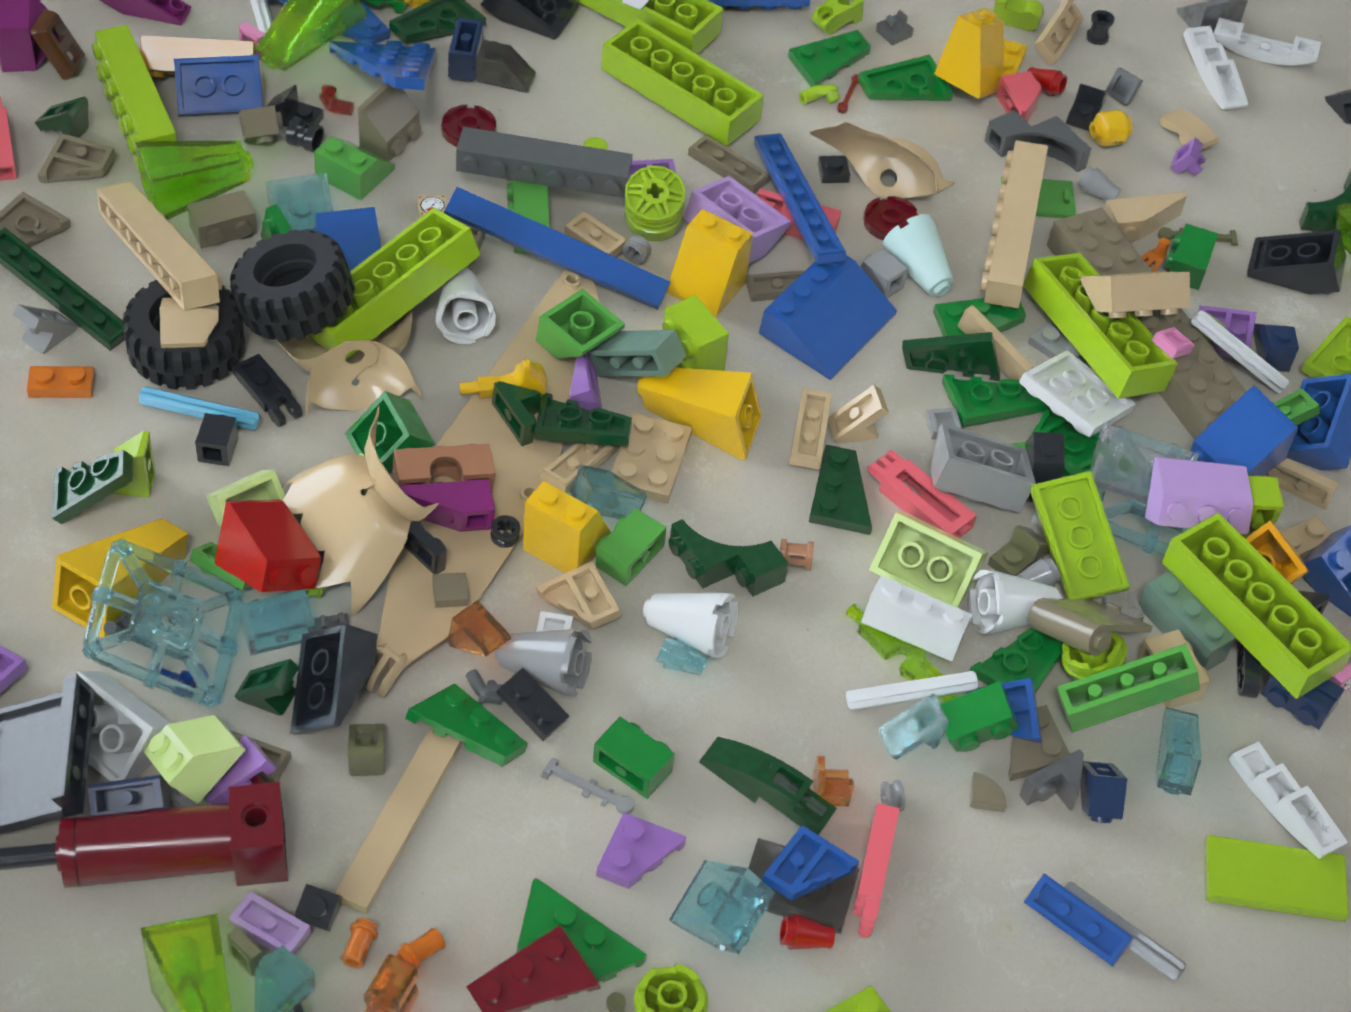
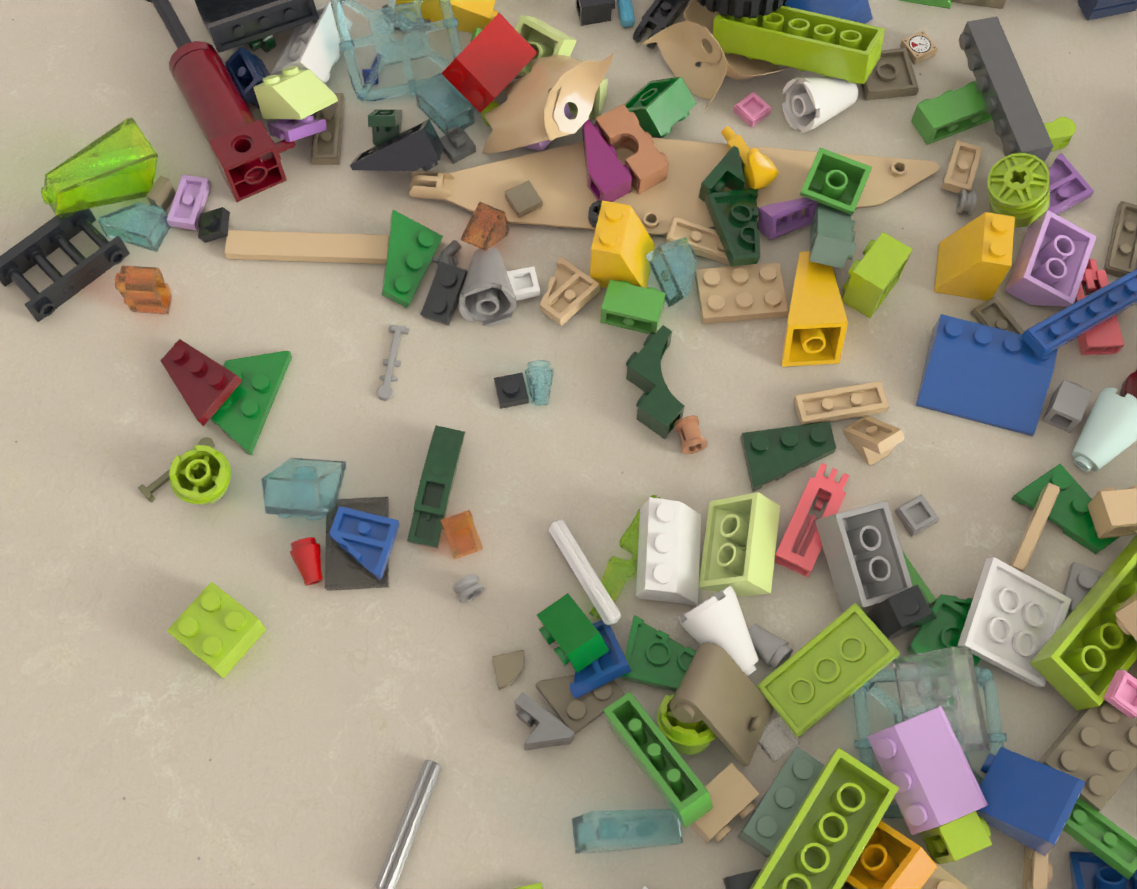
camera: 75 degrees right, 15 degrees up
(362, 934) = (195, 260): orange pin -> none
(366, 749) = (357, 198): olive slope -> none
(421, 947) = (196, 296): orange pin -> none
(426, 548) = (558, 150): black hinge -> none
(433, 364) = (752, 109): none -> bright pink tile
(461, 116) = (1031, 37): dark red tile -> none
(503, 67) = (1115, 32): clear smoke slope -> none
(557, 248) = (920, 142): blue tile -> none
(633, 757) = (424, 380): green brick -> none
(636, 849) = (344, 412): medium lavender wing -> none
(676, 688) = (511, 390): none -> black plate
(695, 619) = (575, 380): white cone -> none
(875, 867) = (385, 593): coral hinge -> none
(917, 725) = (541, 583): clear light blue slope -> none
(960, 353) = (1005, 506): dark green wing -> none
(990, 401) = (963, 540): green wing -> none
(1020, 552) = (792, 624): olive slope -> none
(1078, 919) = (402, 782): blue tile -> none
(1102, 791) = (549, 767): dark blue slope -> none

